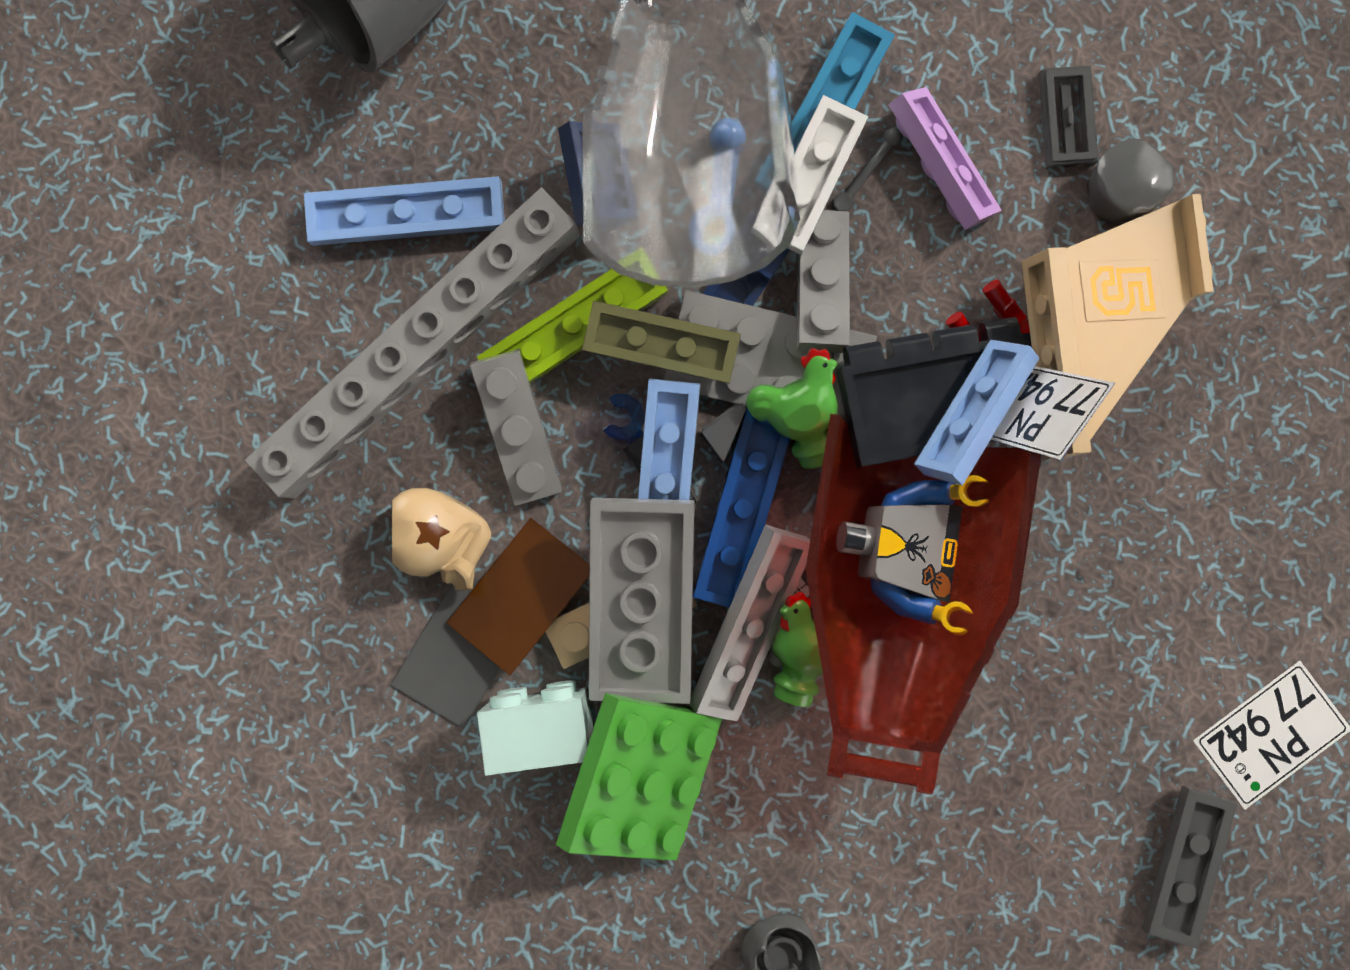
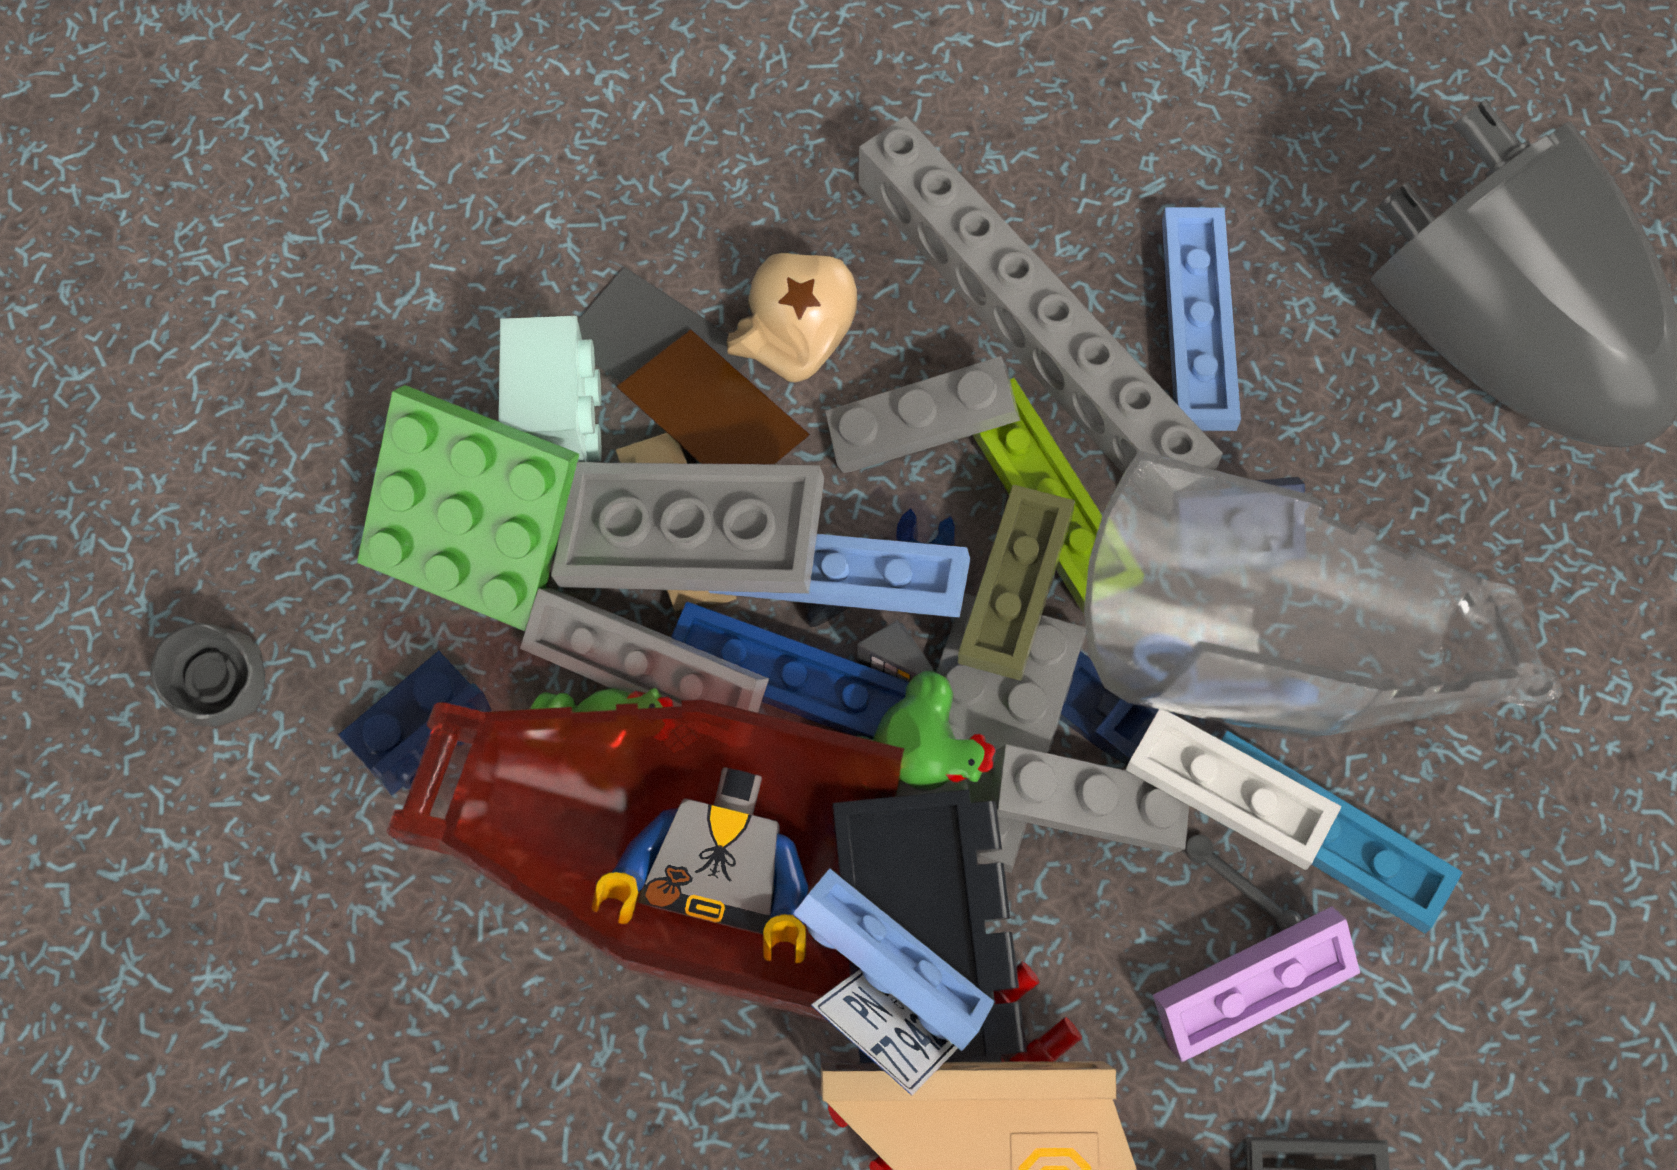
camera: 90 degrees right, 20 degrees down
(803, 792) = (395, 729): none -> dark blue bracket

